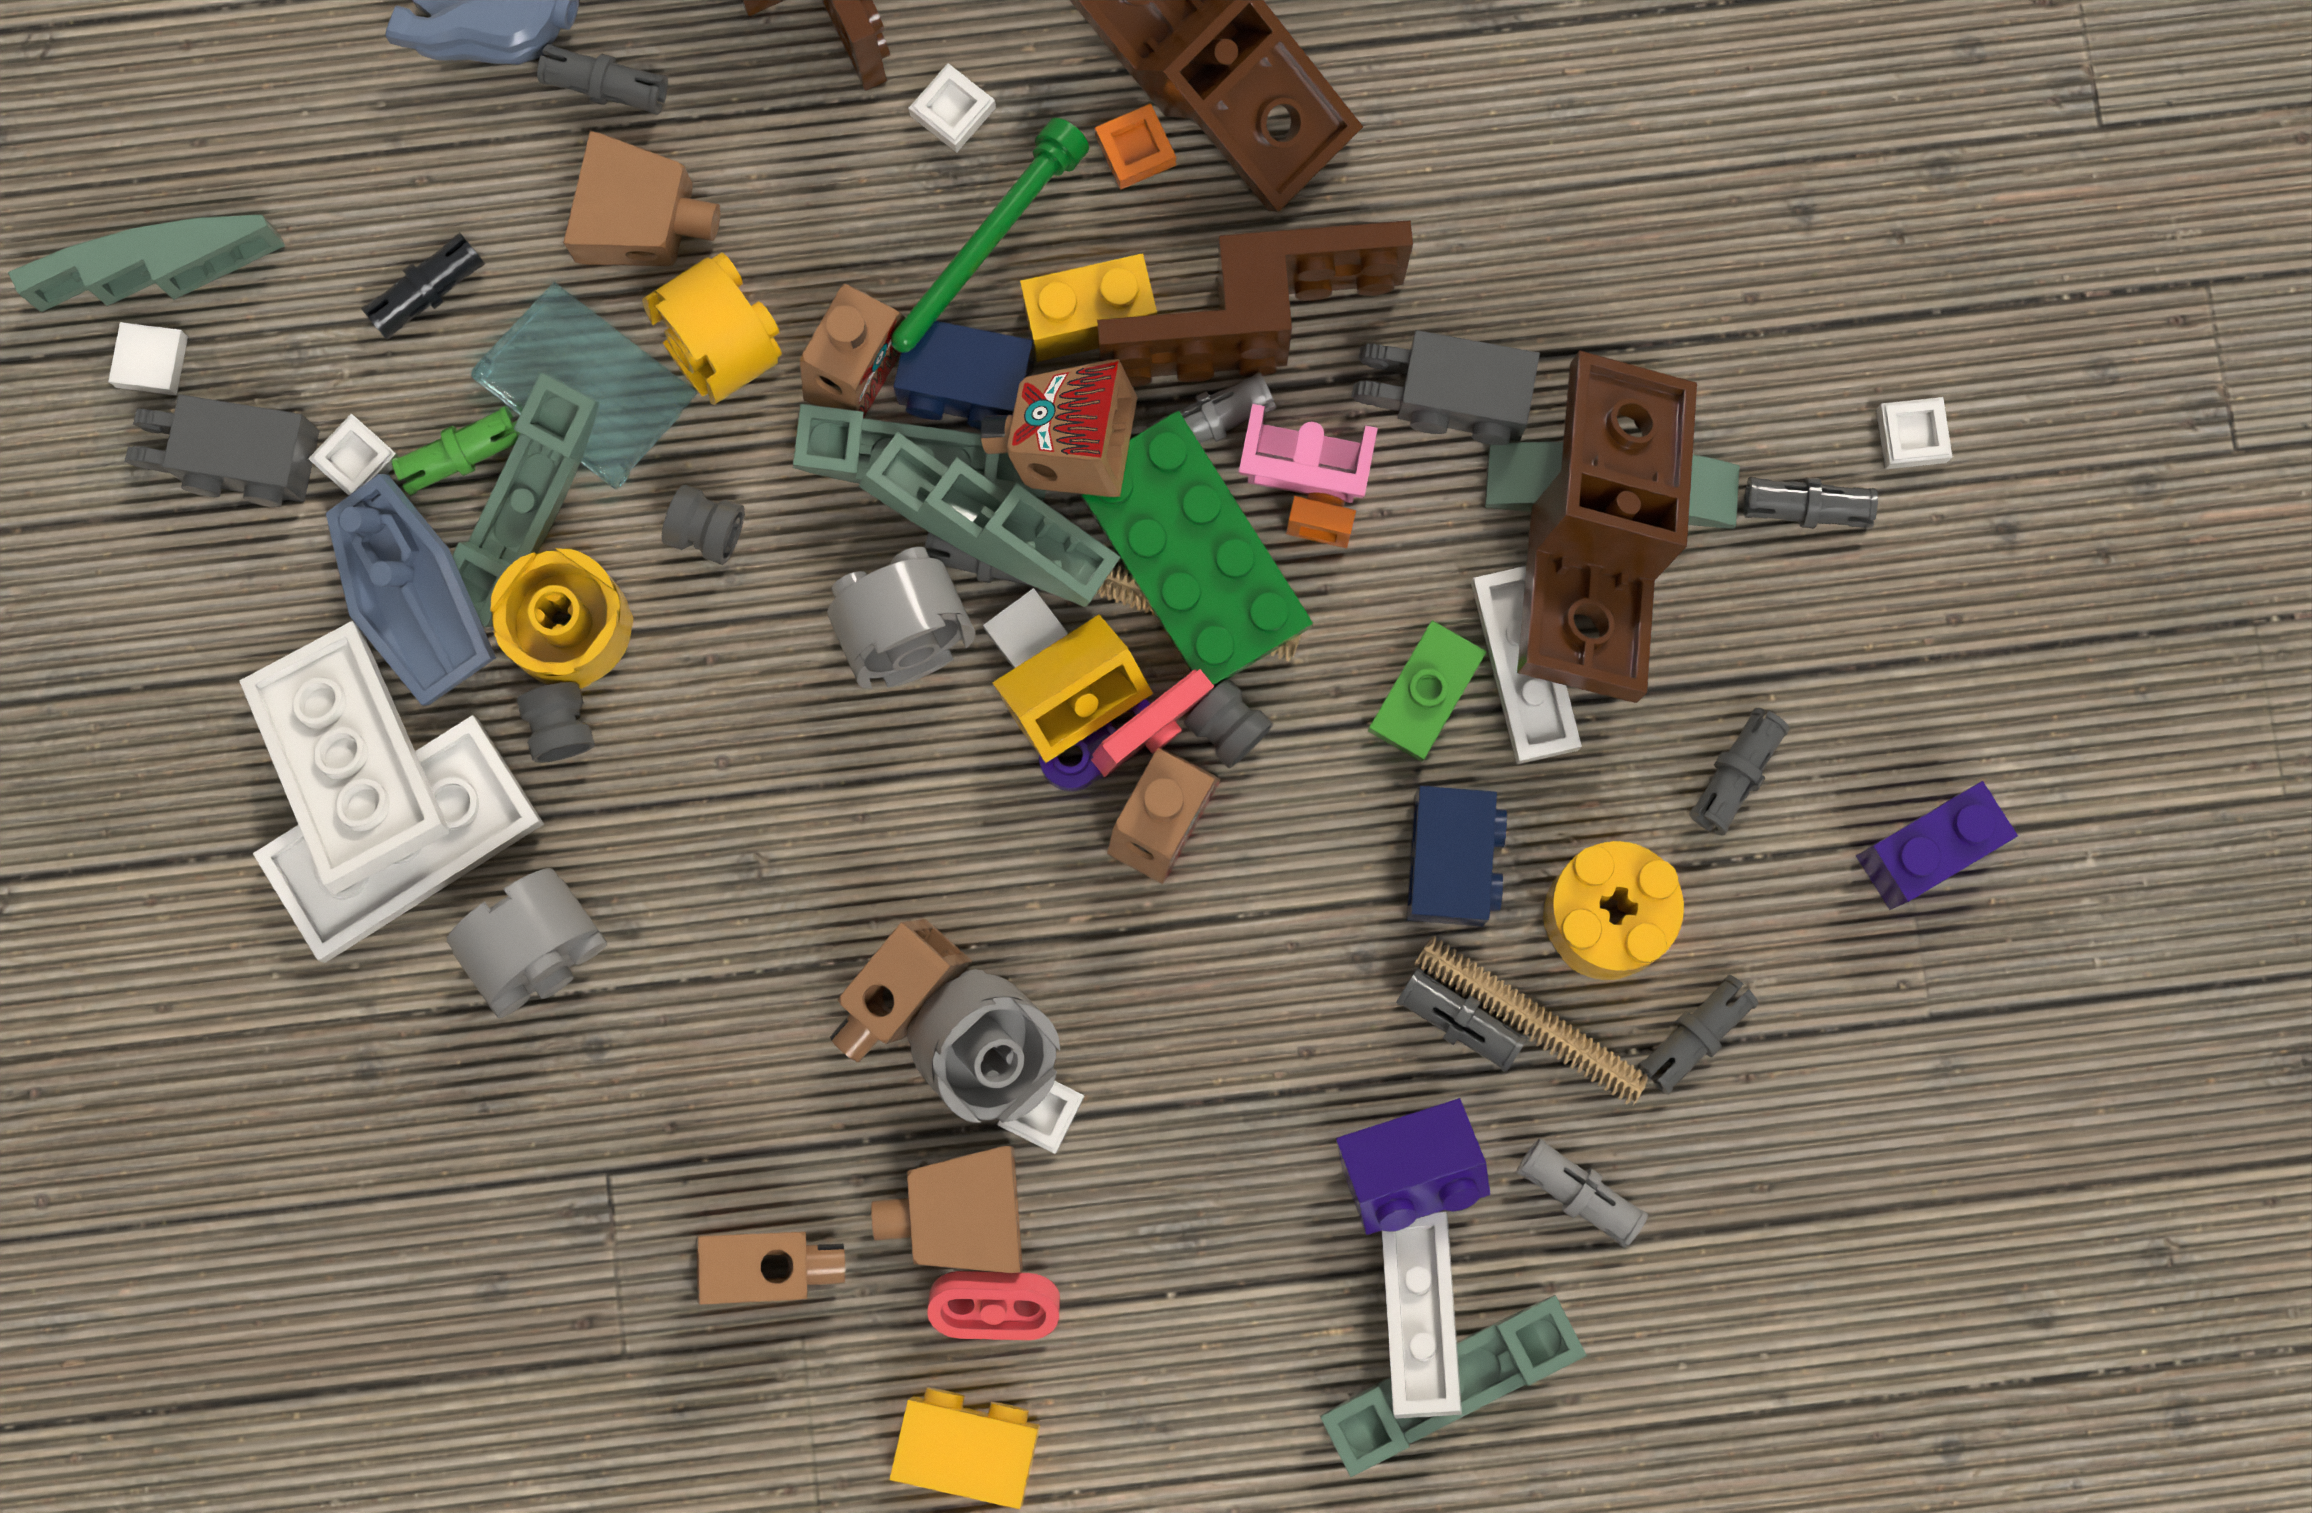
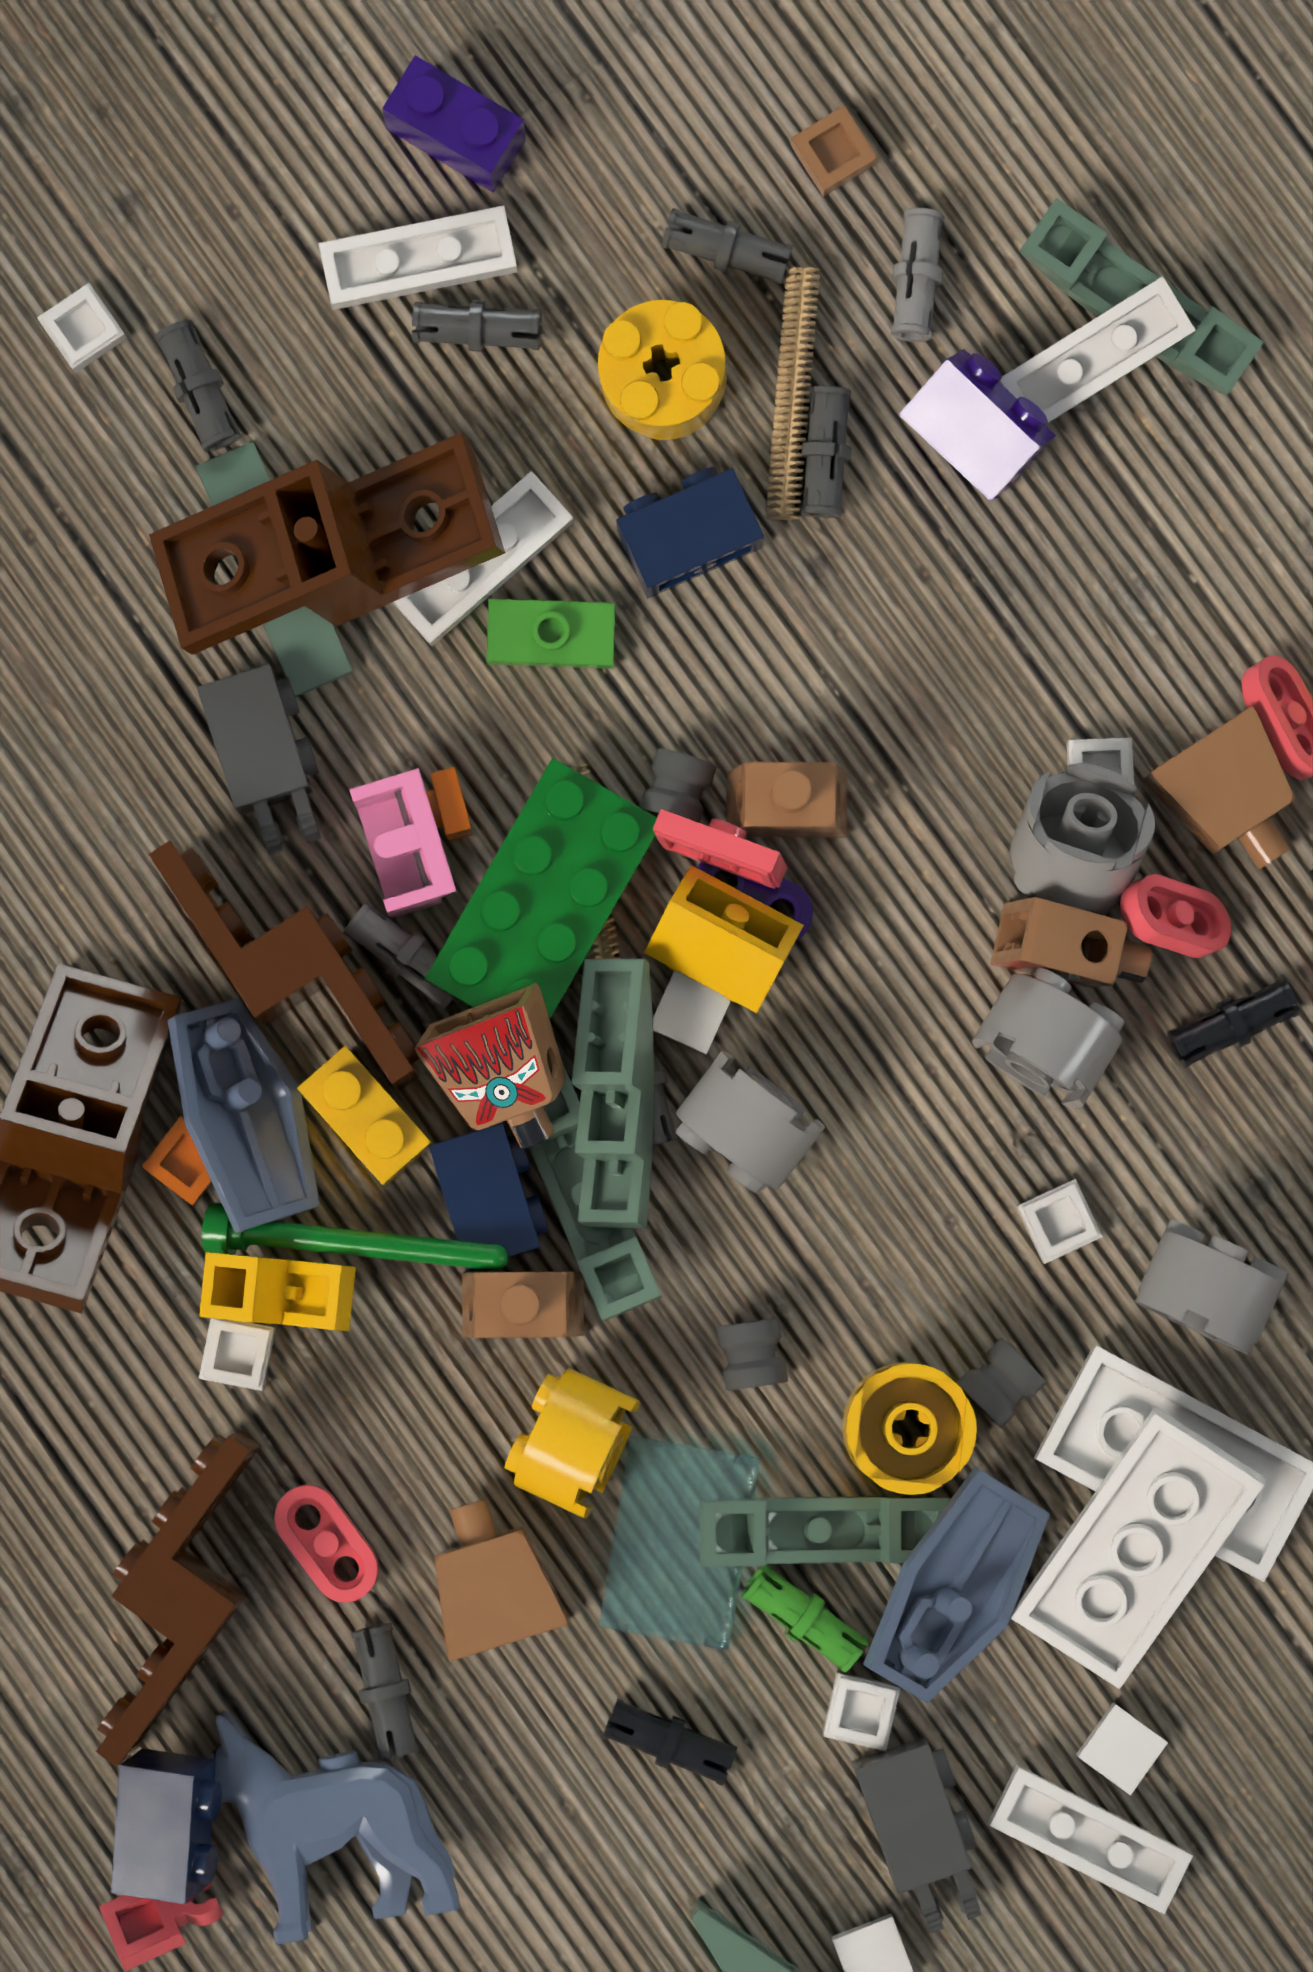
camera: 125 degrees left, 5 degrees up
(131, 588) = (1090, 1839): none -> white plate
(191, 659) = (1121, 1748): none -> white tile
(667, 853) = (1059, 1221): none -> white tile
(750, 1103) = (1234, 1022): none -> black pin
(752, 90) = (322, 1546): none -> coral plate
(823, 921) = (1049, 1037): none -> light grey brick
(875, 1093) = (1175, 916): none -> coral plate
(985, 154) = (277, 1291): none -> yellow brick
(1144, 202) = (243, 1115): none -> sand blue piece
(1737, 1178) = (833, 150): none -> medium nougat plate
(1828, 752) = (418, 257): none -> white plate

